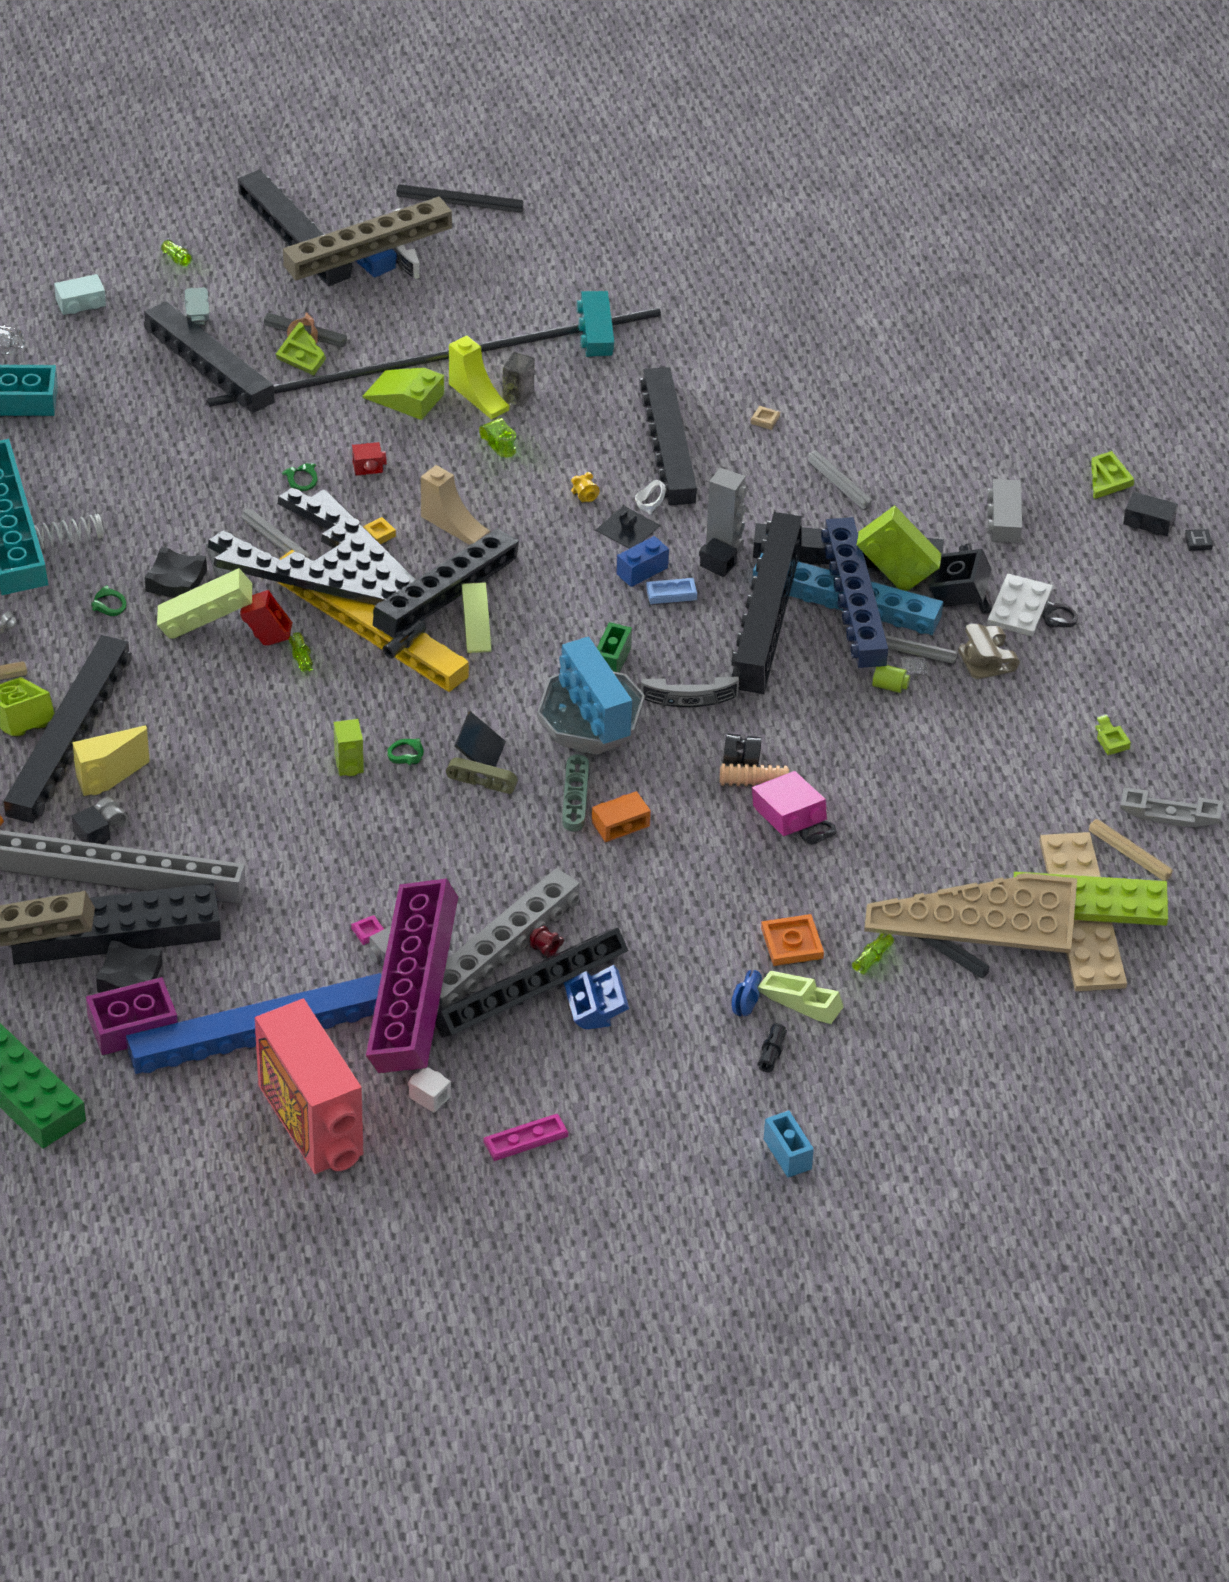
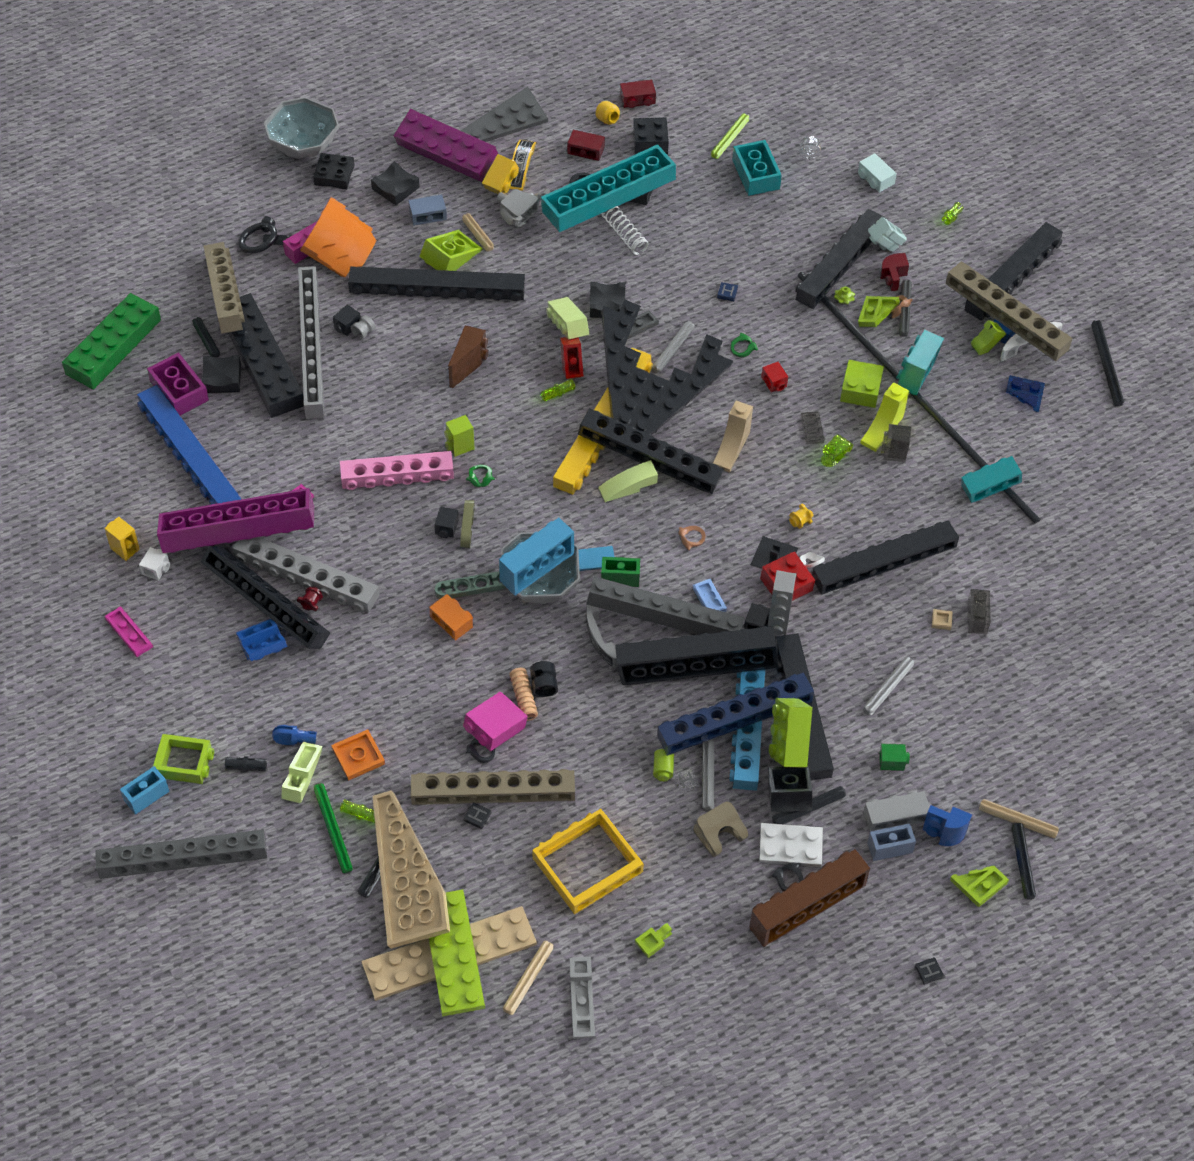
camera: 75 degrees right, 10 degrees up
(48, 982) = (206, 337): none -> black axle
(98, 606) = (564, 267): green piece -> none
(109, 759) = (404, 309): light yellow slope -> none
(207, 470) = (727, 291): none -> dark blue tile
(215, 715) = (468, 354): none -> reddish brown slope
(244, 323) = (894, 267): none -> dark red brick
(266, 370) = (844, 295): none -> lime plant
(309, 1087) = (112, 483): coral brick -> none
(370, 825) = (396, 470): none -> bright pink brick
(380, 530) = (701, 403): yellow plate -> none
(384, 1108) = (122, 538): none -> yellow brick
(391, 272) = (988, 337): none -> lime leg
(394, 646) = (588, 442): black pin -> none
(410, 328) = (920, 361): none -> teal brick
(453, 450) = (812, 427): none -> clear smoke tile
(473, 269) = (1026, 391): none -> clear blue wing
(473, 793) = (446, 522): none -> black brick
(479, 741) = (495, 513): black piece -> none
(567, 593) = (683, 531): none -> nougat piece
(642, 561) = (730, 570): blue brick -> none
(673, 517) = (790, 563): none -> red brick
(687, 622) = (660, 608): none -> dark grey brick
(750, 1127) = (180, 774): none -> lime window
(770, 382) = (978, 611): none -> clear smoke brick
(876, 828) = (484, 794): none -> dark tan brick
(888, 982) = (333, 828): none -> green axle
(889, 1125) = (181, 854): none -> dark grey brick
(907, 851) = (477, 815): none -> black tile
(936, 496) = (893, 757): none -> green brick
(989, 733) = (606, 885): none -> yellow window
(1036, 428) = (1017, 817): none -> tan axle
(1040, 472) = (948, 826): none -> blue brick
(1046, 521) = (891, 842): none -> sand blue brick
(1088, 438) = (1023, 861): none -> black axle
(1100, 596) = (809, 897): none -> reddish brown brick
(1150, 514) = (940, 924): black brick -> none

